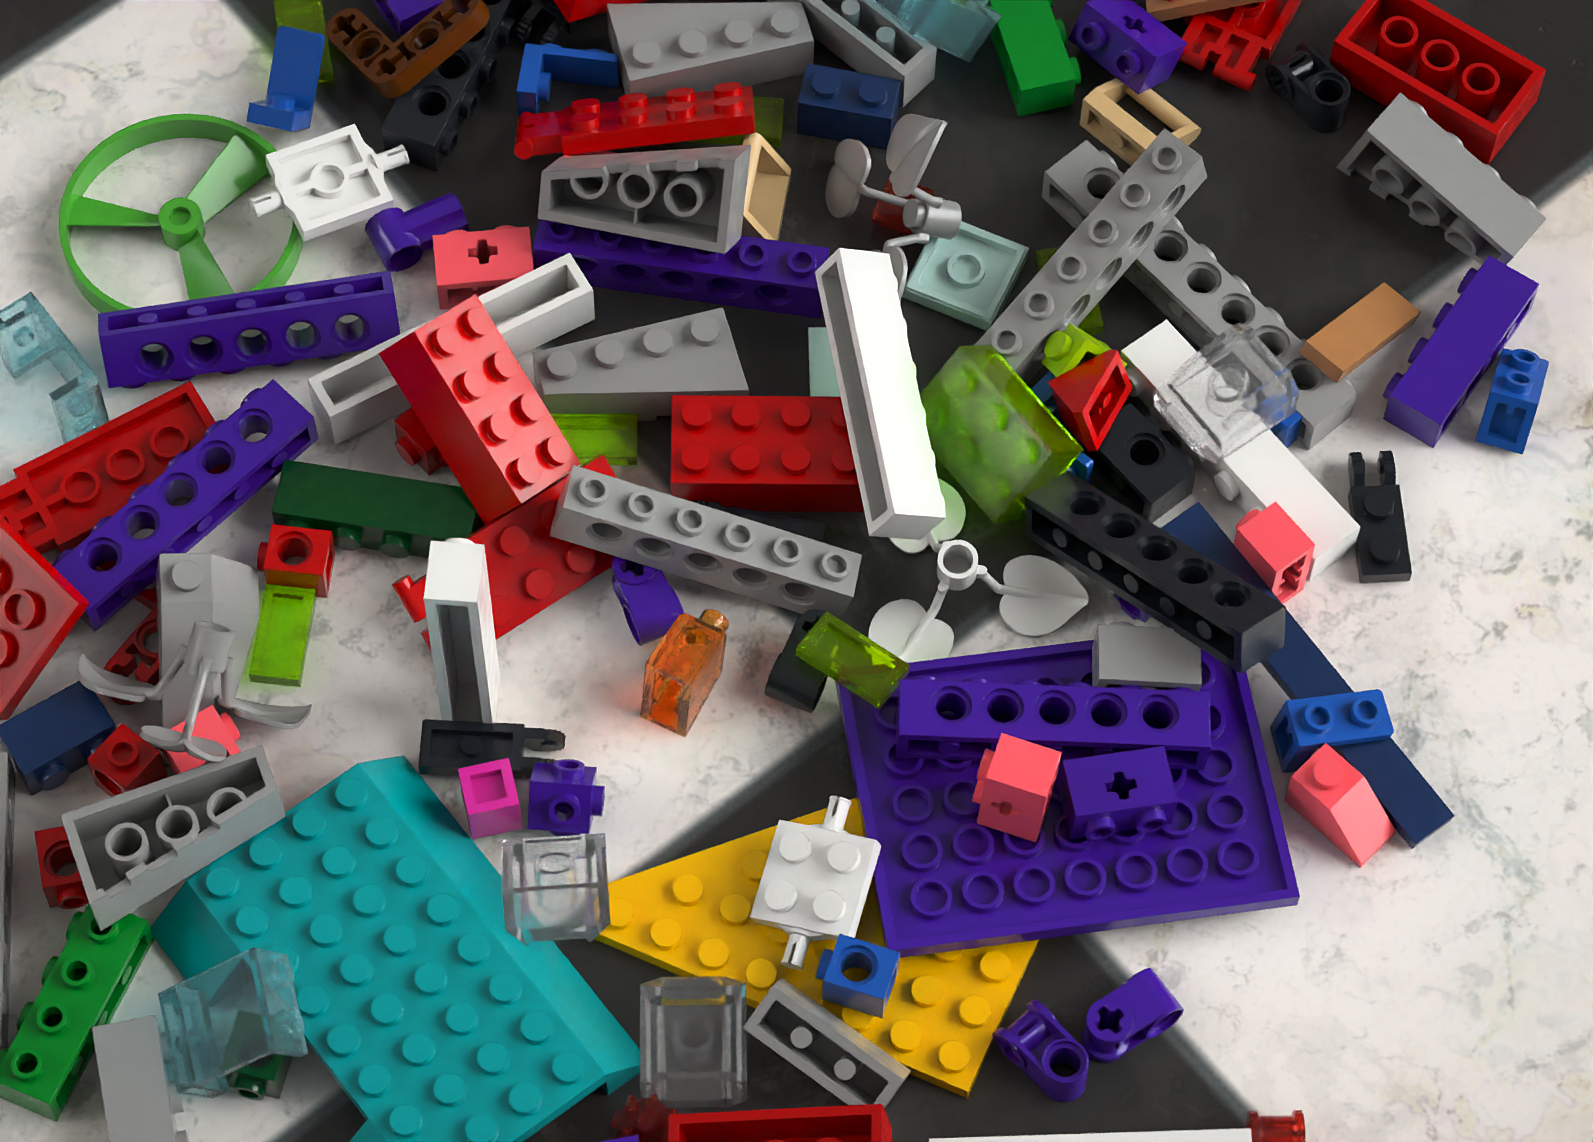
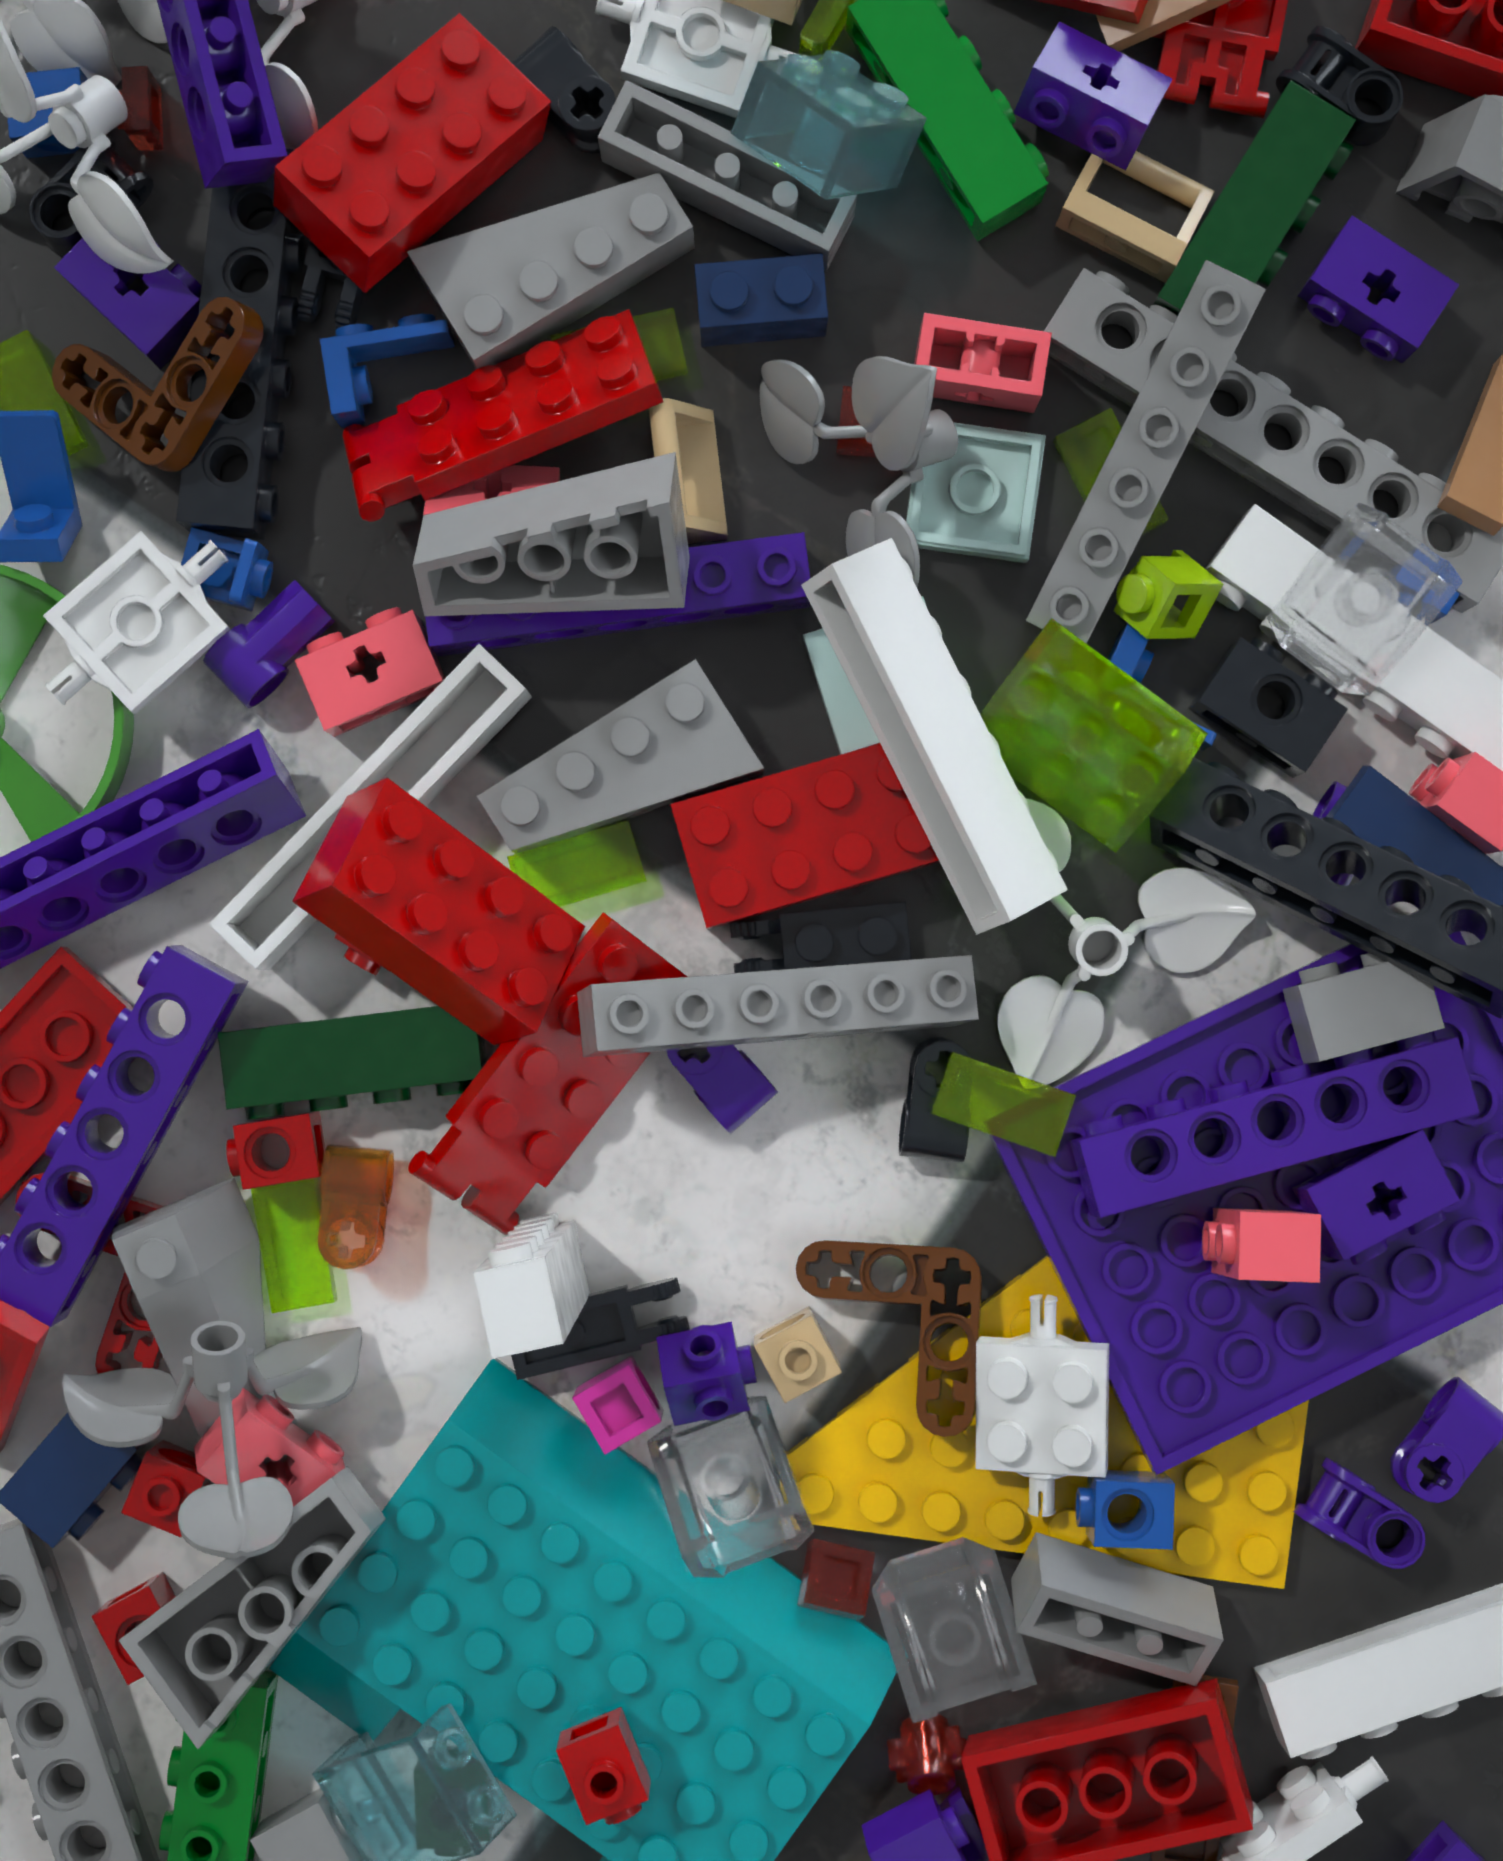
camera: 15 degrees left, 25 degrees up
(340, 615) = (357, 1190): none -> clear orange piece
(390, 1023) = (604, 1768): none -> red brick
(412, 181) = (242, 577): none -> blue bracket
(614, 981) = (836, 1579): none -> clear red plate
(639, 806) = (797, 1354): none -> tan brick
(686, 655) = (795, 1183): clear orange torso -> none
(749, 790) = (918, 1290): none -> reddish brown beam
(993, 182) = (984, 361): none -> coral brick
(1092, 397) = (1195, 653): red slope -> none
(1244, 134) = (1266, 194): none -> dark green brick
(1300, 217) = (1409, 288): none -> dark purple brick

